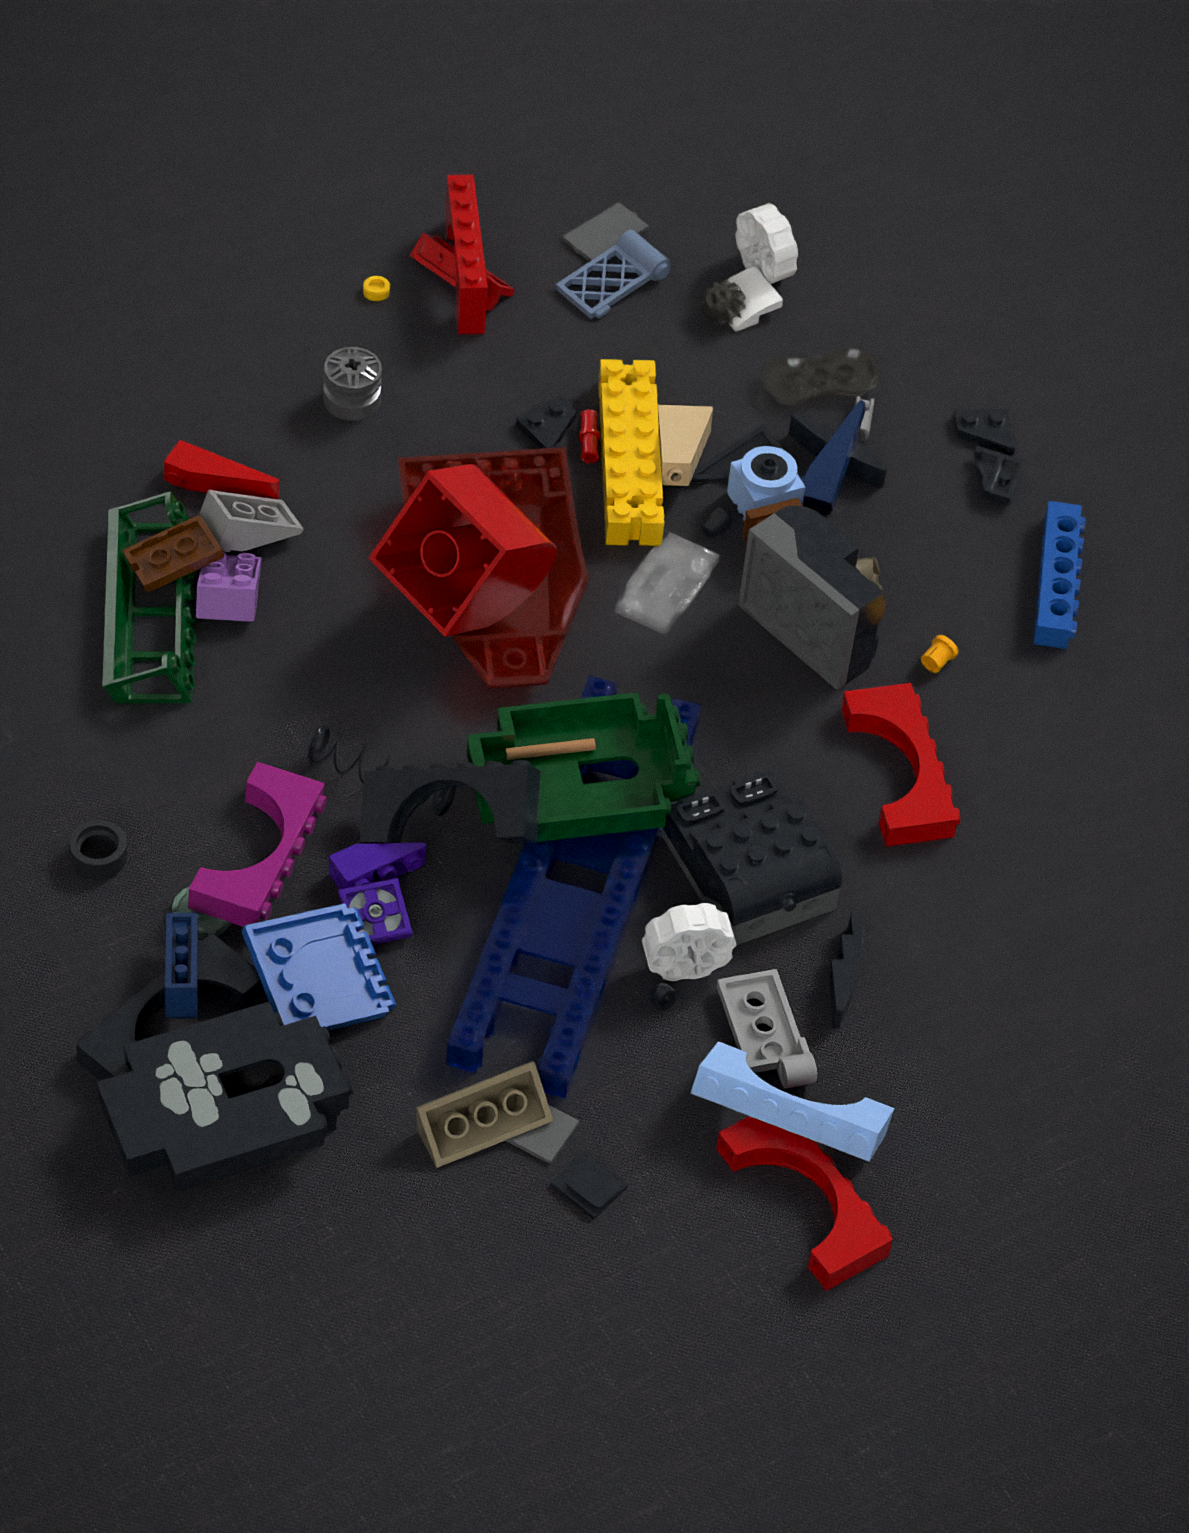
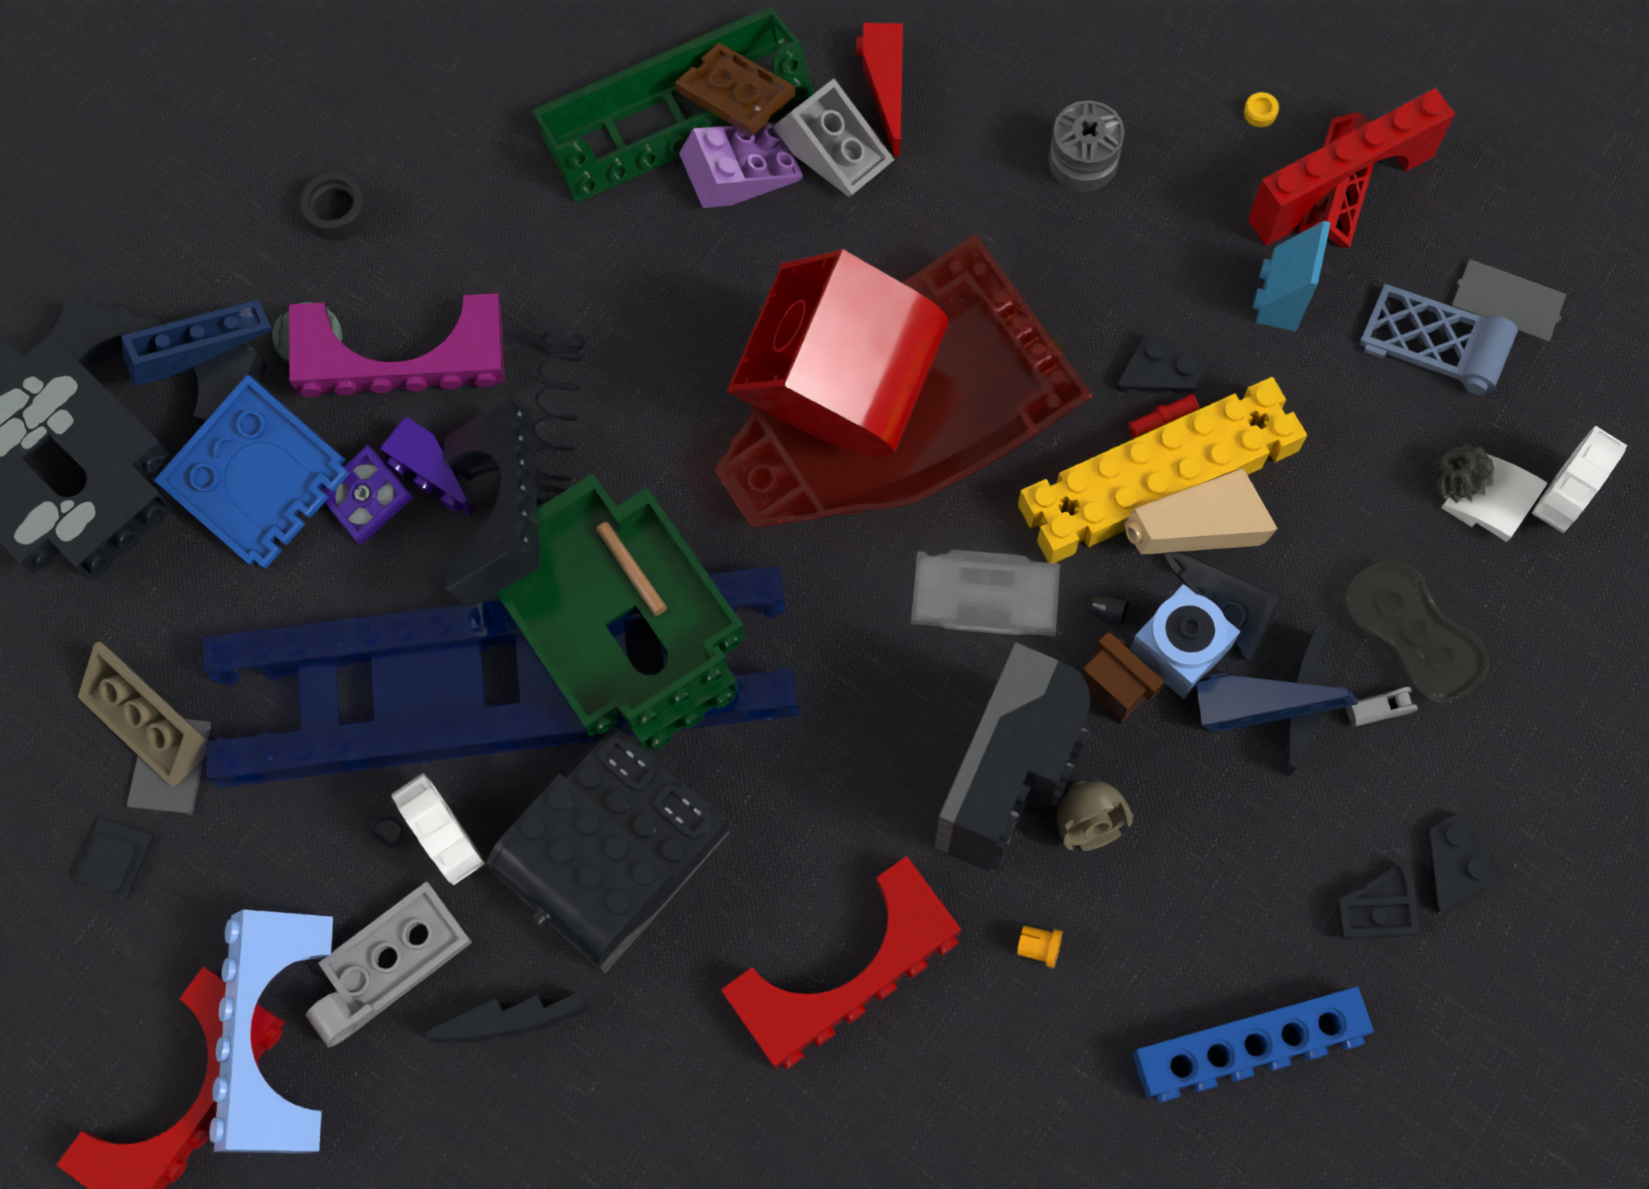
camera: 75 degrees right, 20 degrees up
(533, 314) = (1291, 278): none -> dark azure slope

